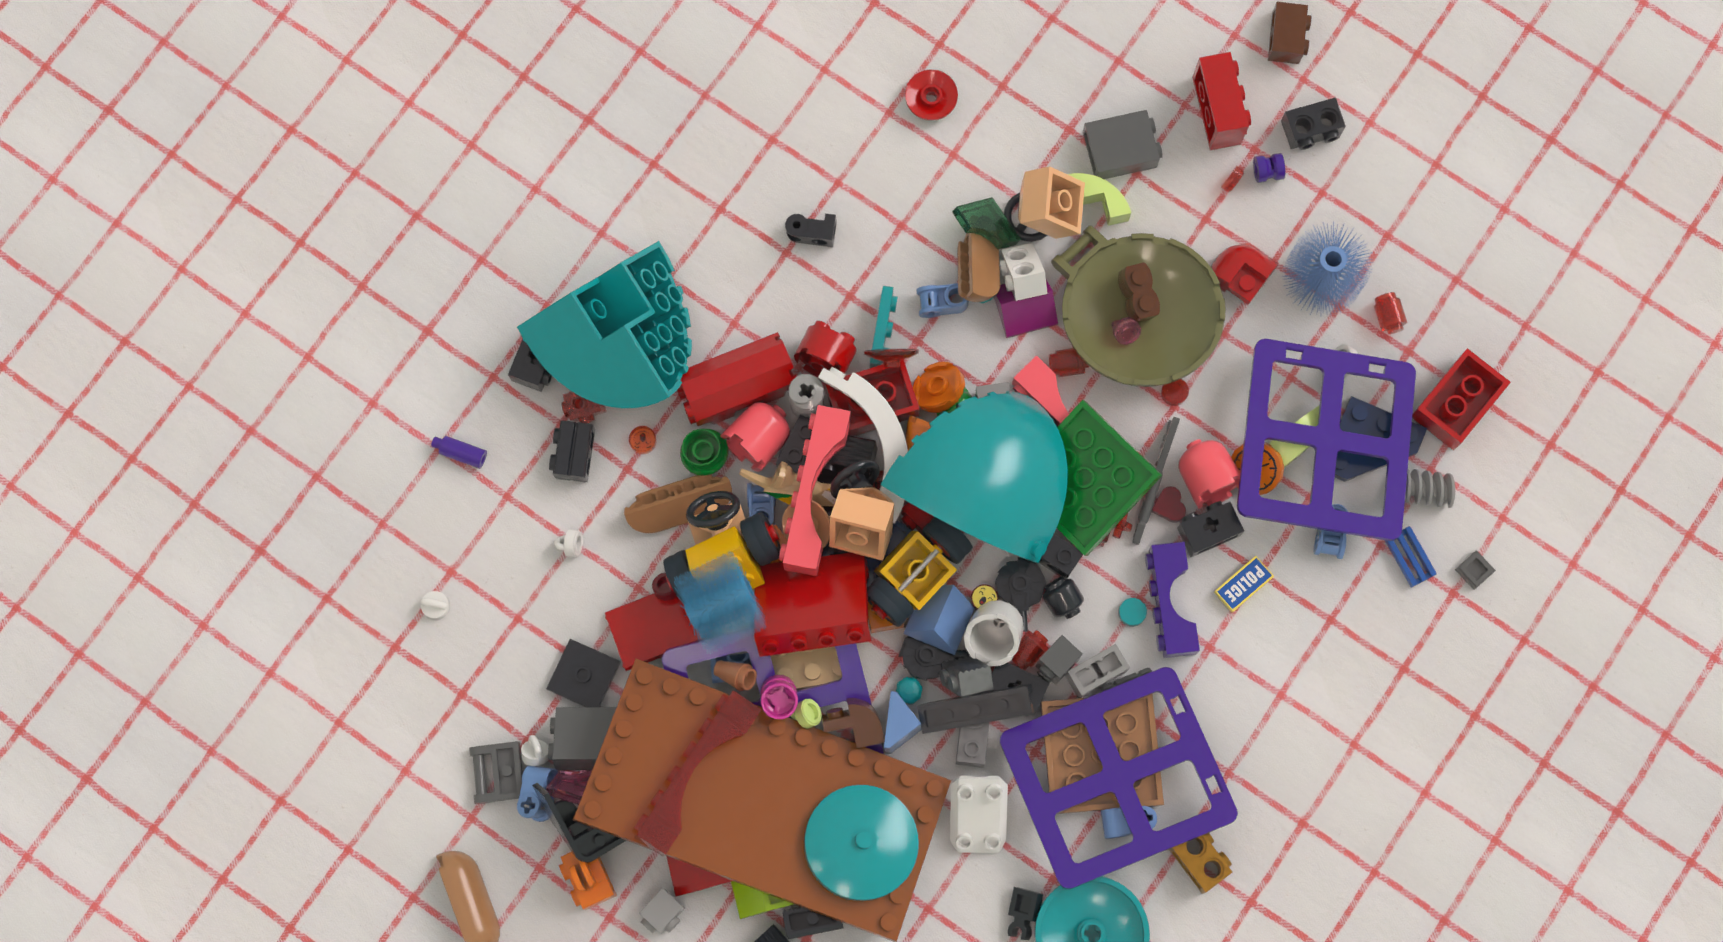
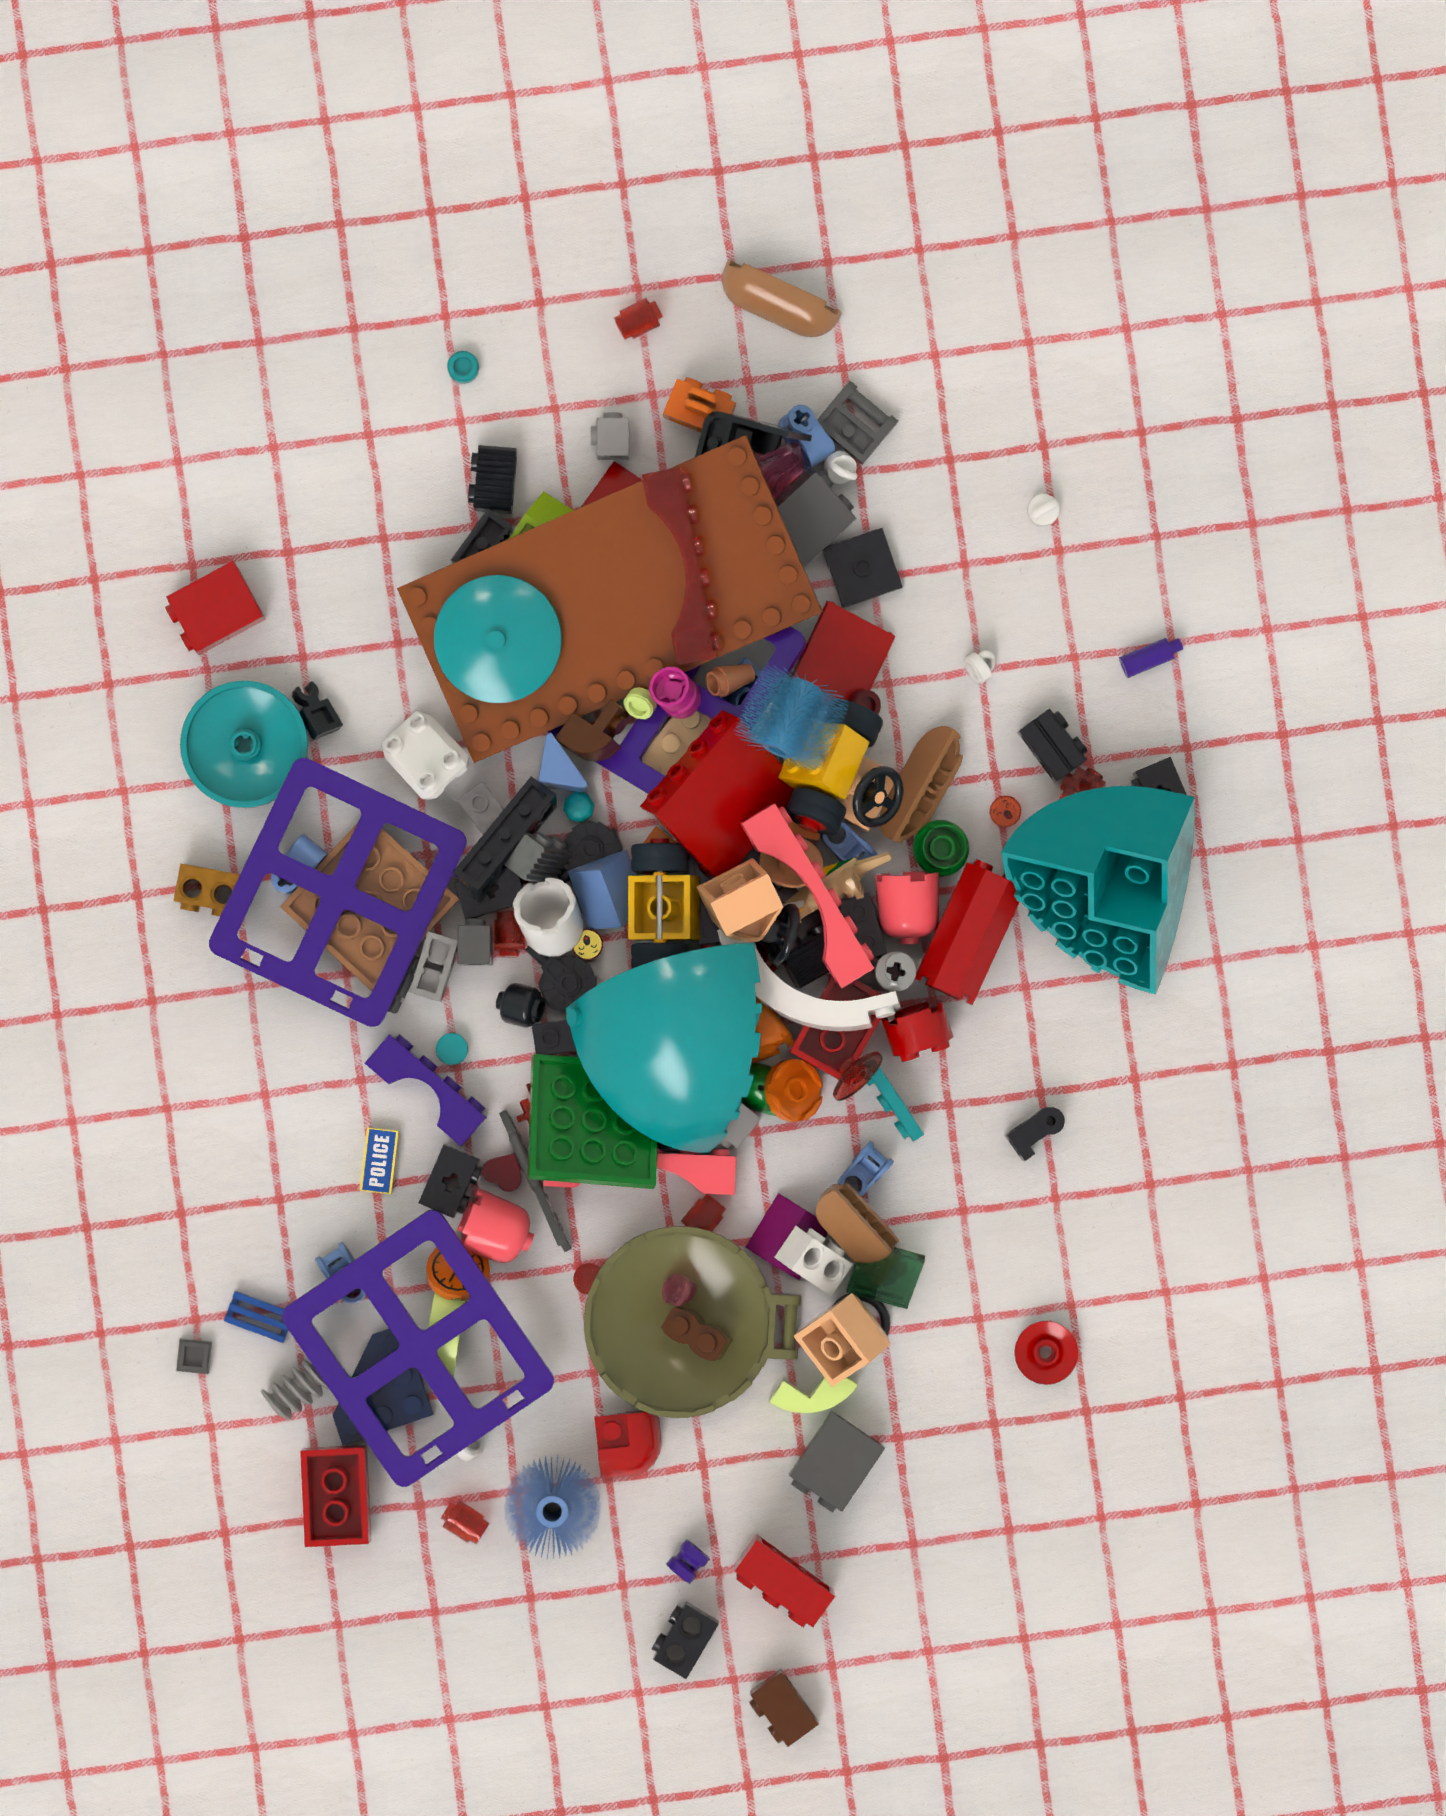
camera: 135 degrees right, 10 degrees up
(1232, 179) = (710, 1521): clear red tile -> none

